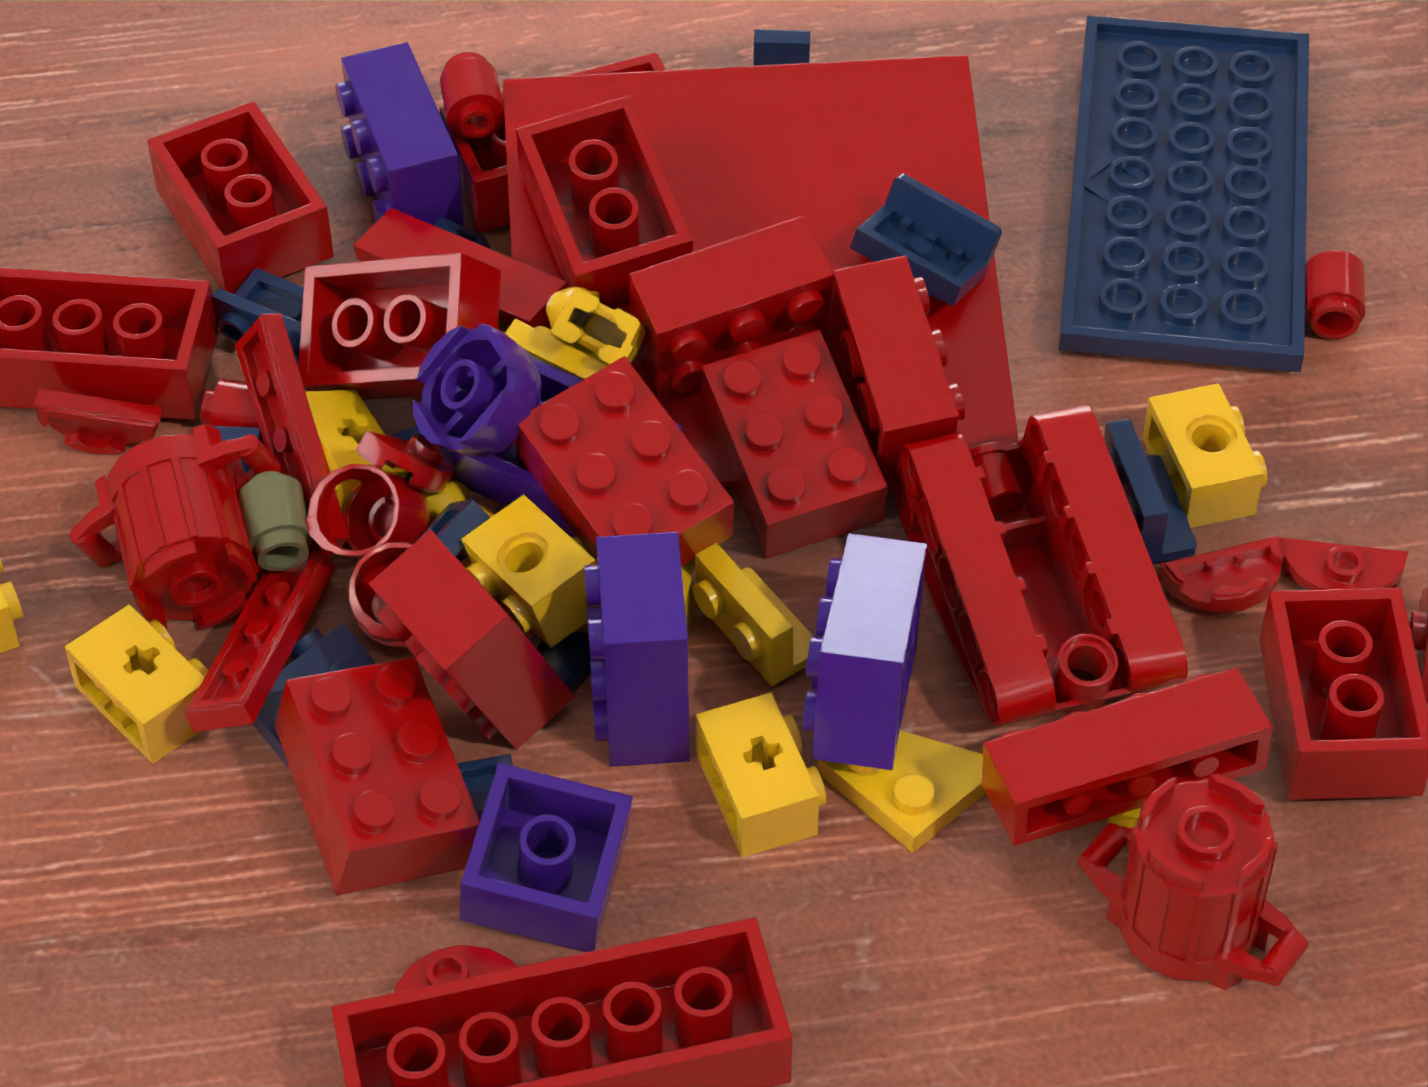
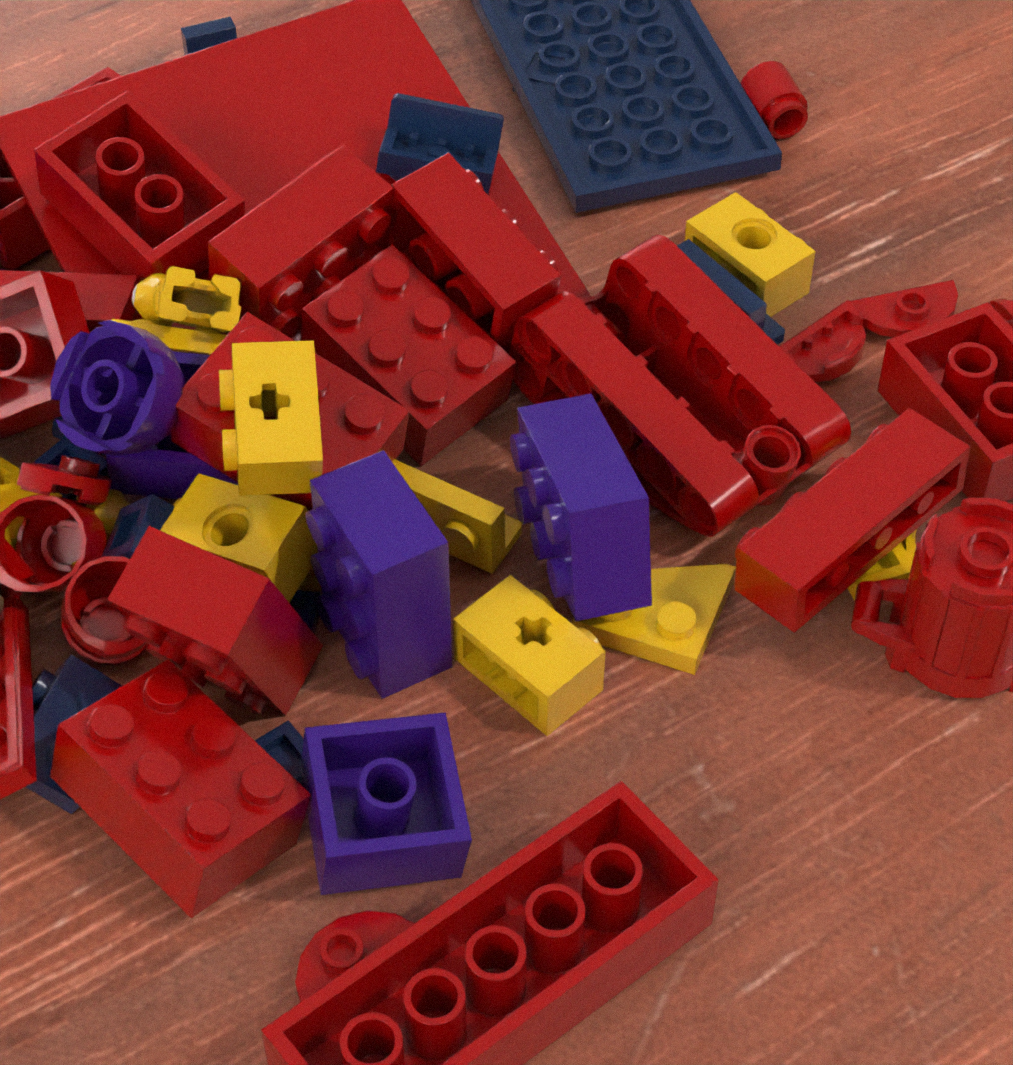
camera: 25 degrees left, 0 degrees up
(615, 440) = (281, 384): none -> yellow brick

